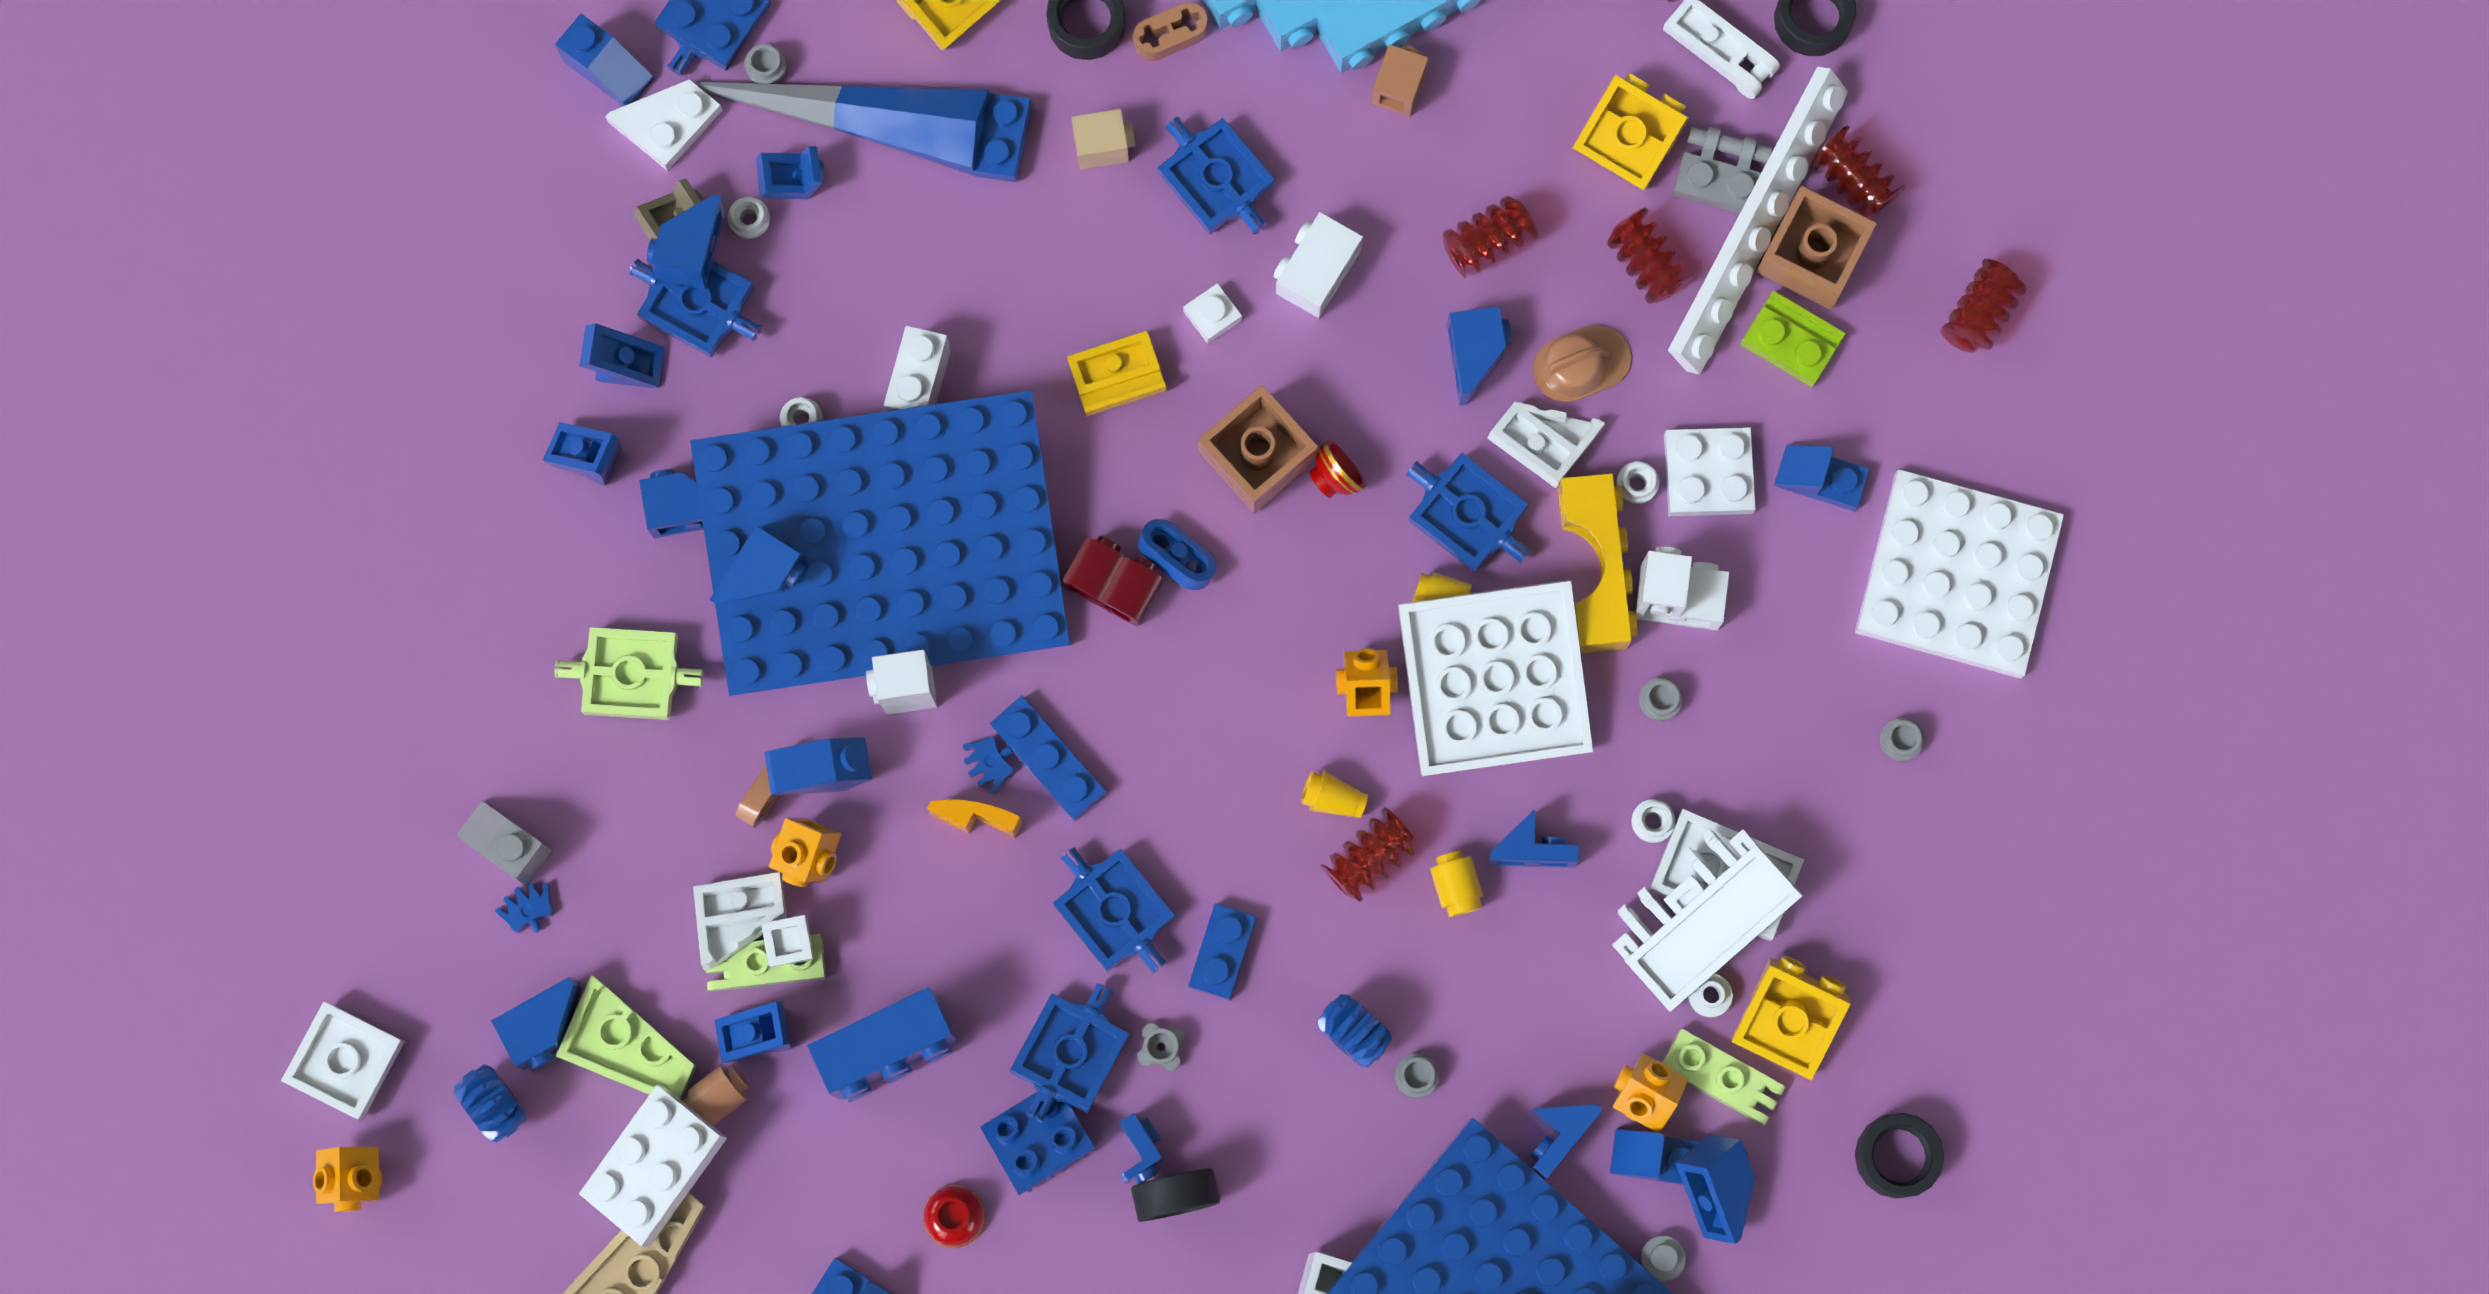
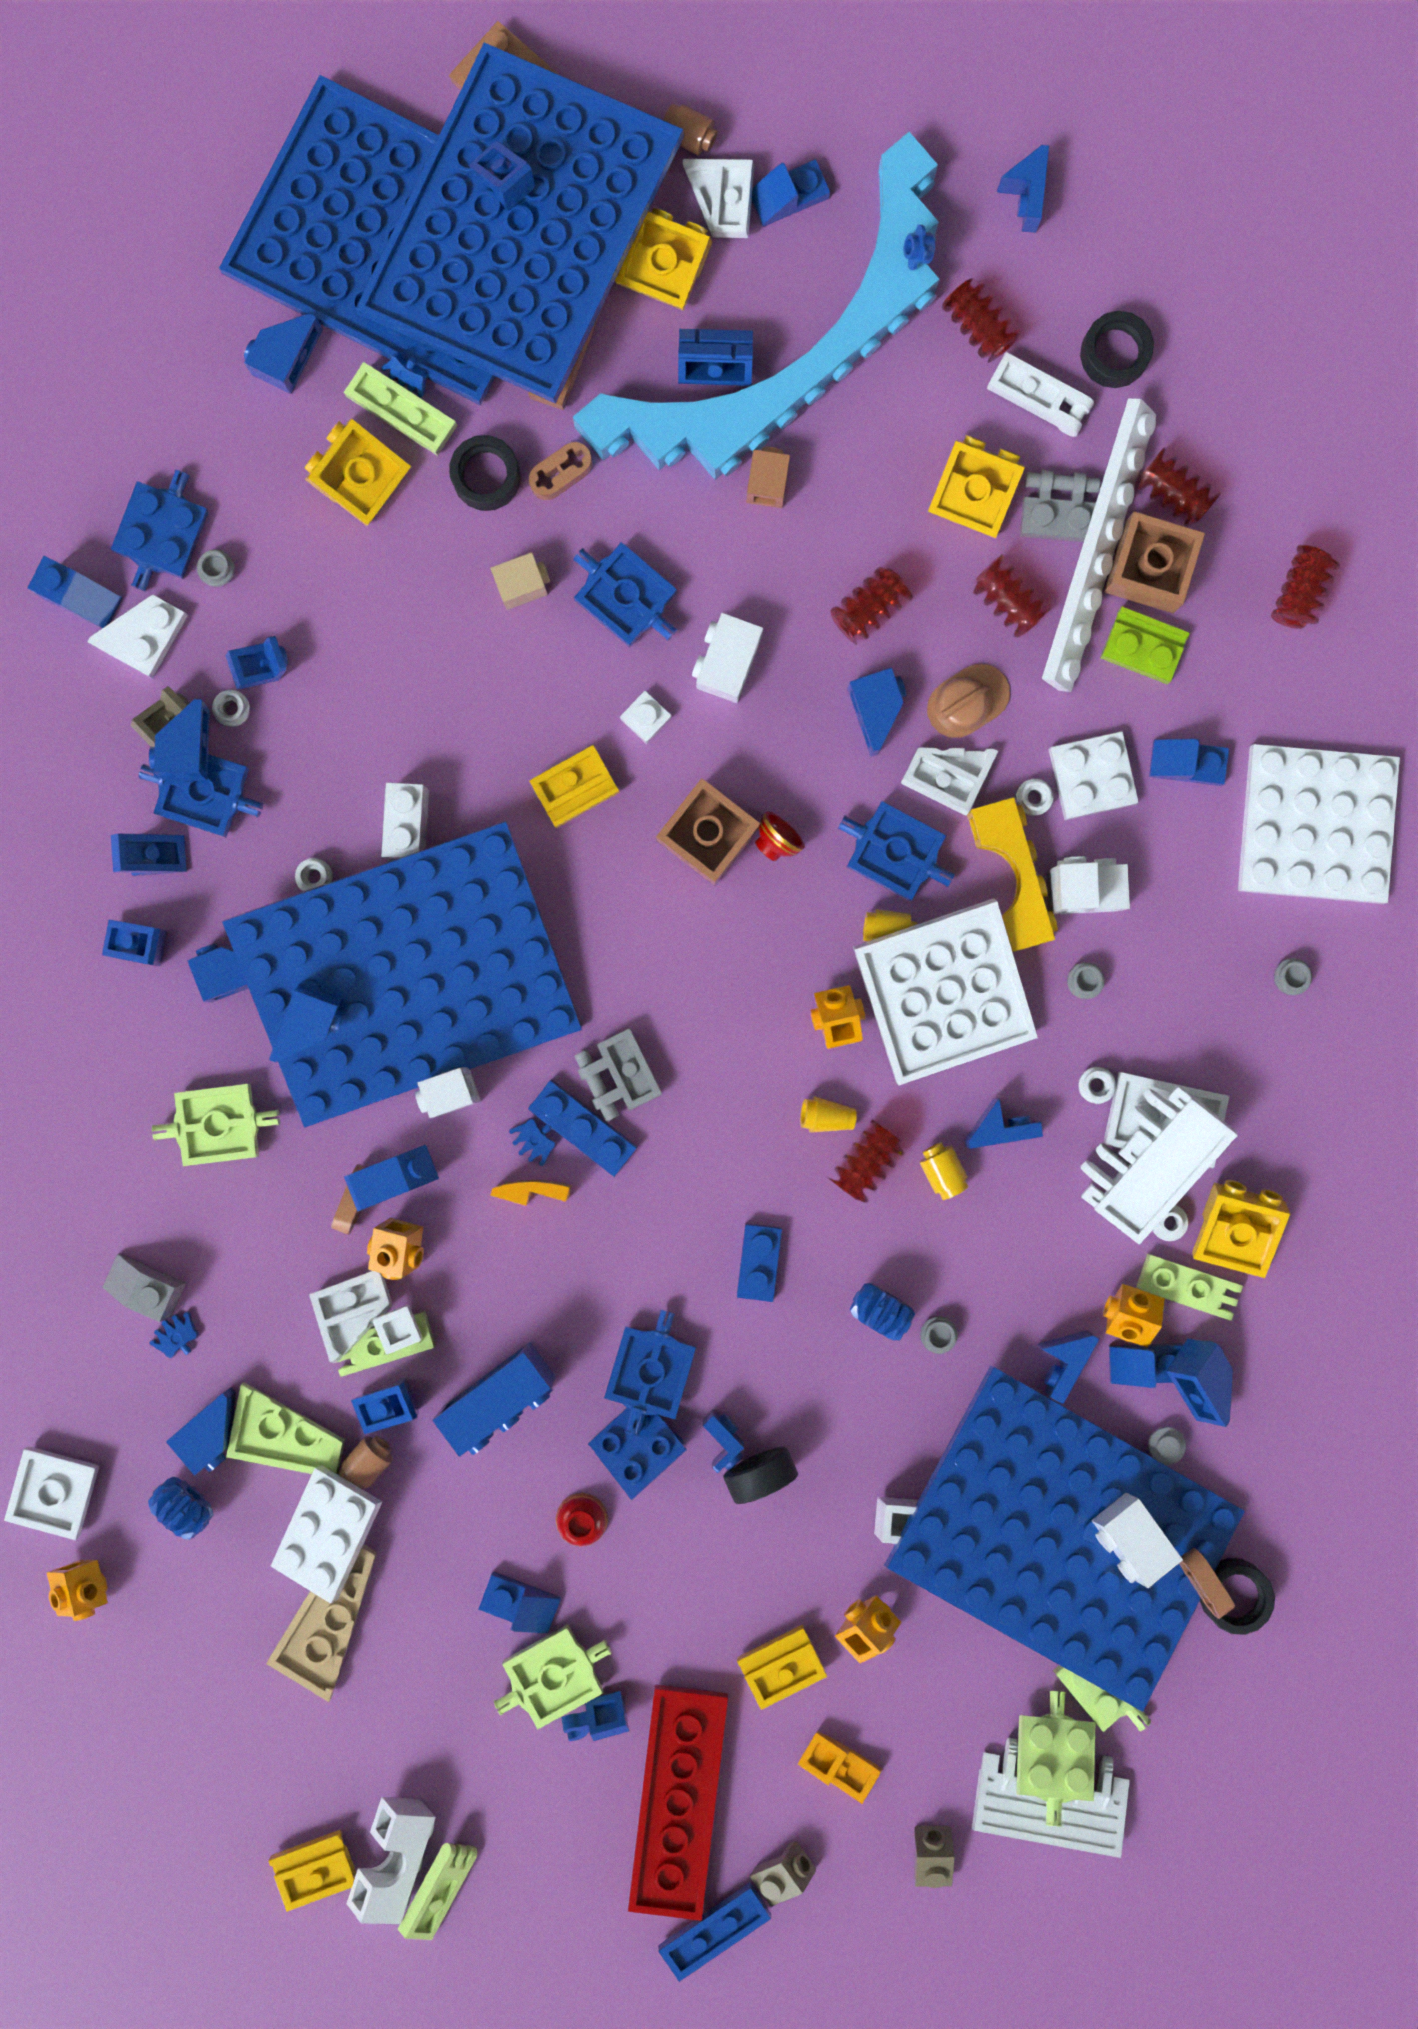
camera: 10 degrees left, 10 degrees up
(951, 127) = (388, 594): blue plate -> none
(1112, 580) = (607, 967): dark red brick -> none
(1113, 910) = (662, 1246): blue plate -> none
(1114, 701) = (629, 1070): none -> light grey plate
(1152, 1037) = (717, 1359): light grey plate -> none
(1177, 554) = (657, 934): blue plate -> none
(1933, 1155) = (1375, 1326): black tyre -> none

